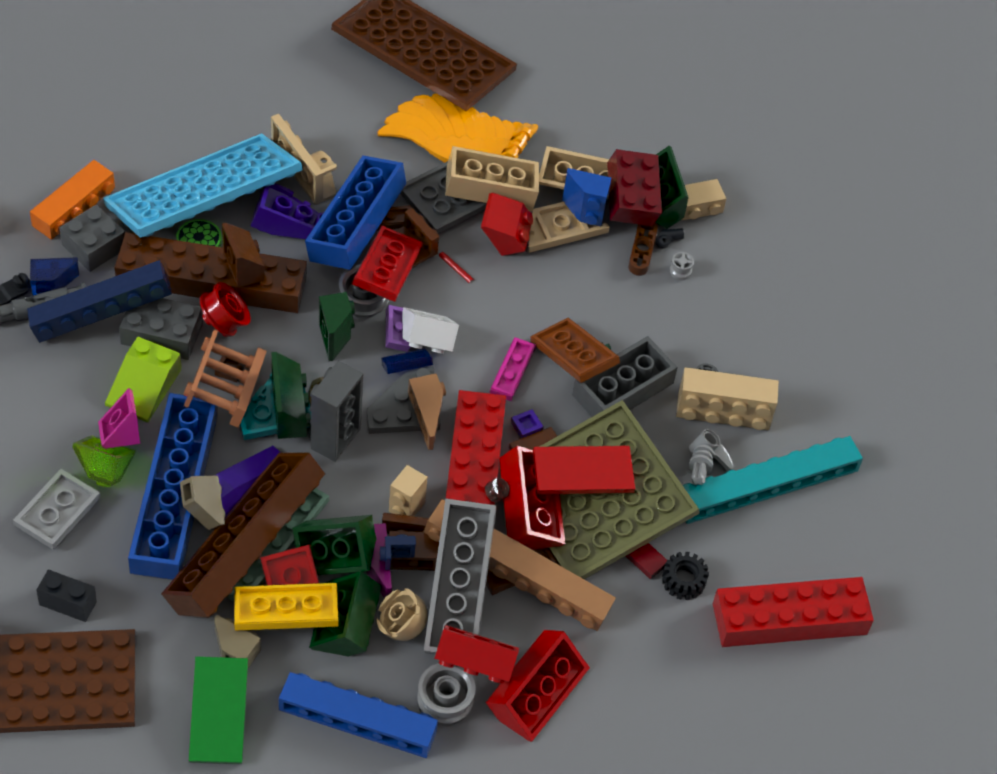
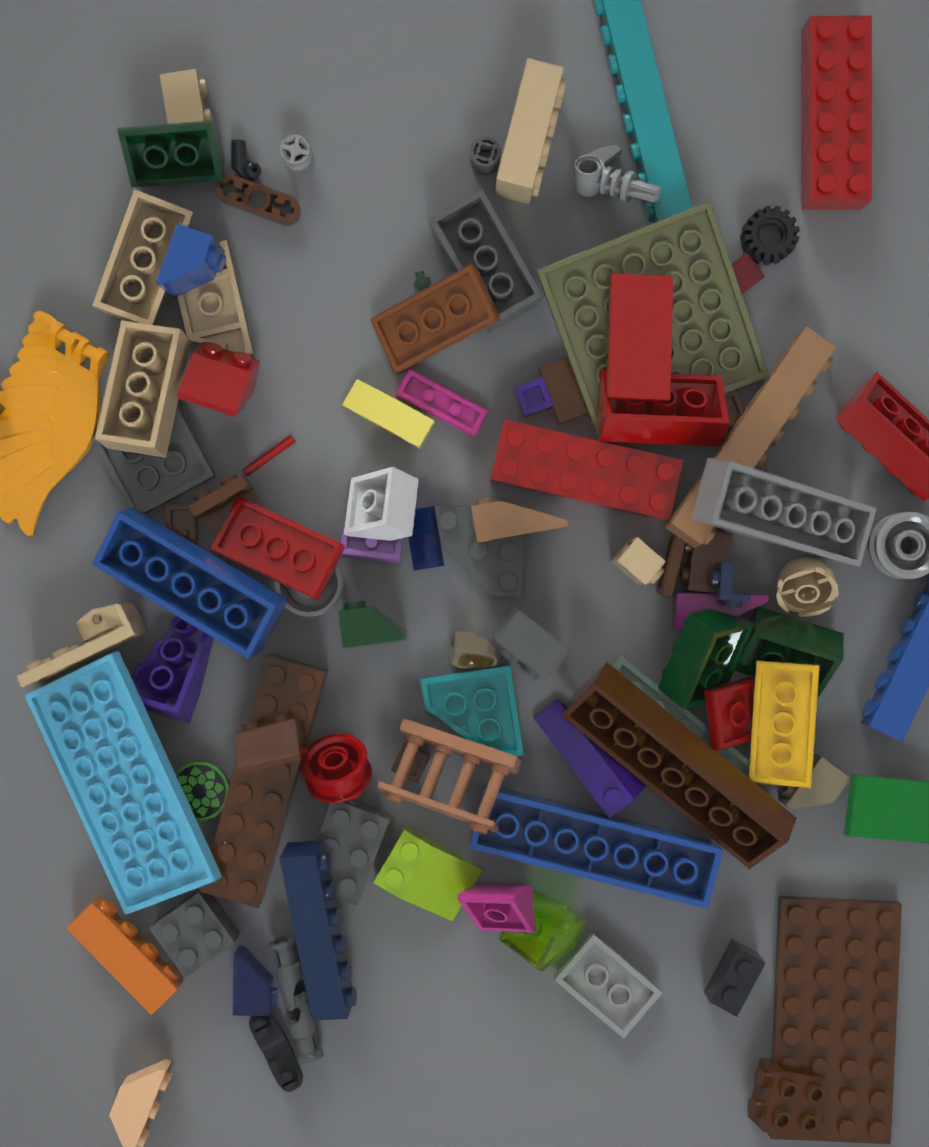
camera: 80 degrees left, 35 degrees up
(203, 500) = (640, 817): dark tan slope -> none
(289, 397) = (488, 697): dark green slope -> none
(476, 654) = (885, 506): red brick -> none
(491, 489) = (655, 443): clear smoke bush -> none
(497, 334) = (388, 413): none -> light yellow slope
(634, 187) = (182, 191): dark red brick -> none

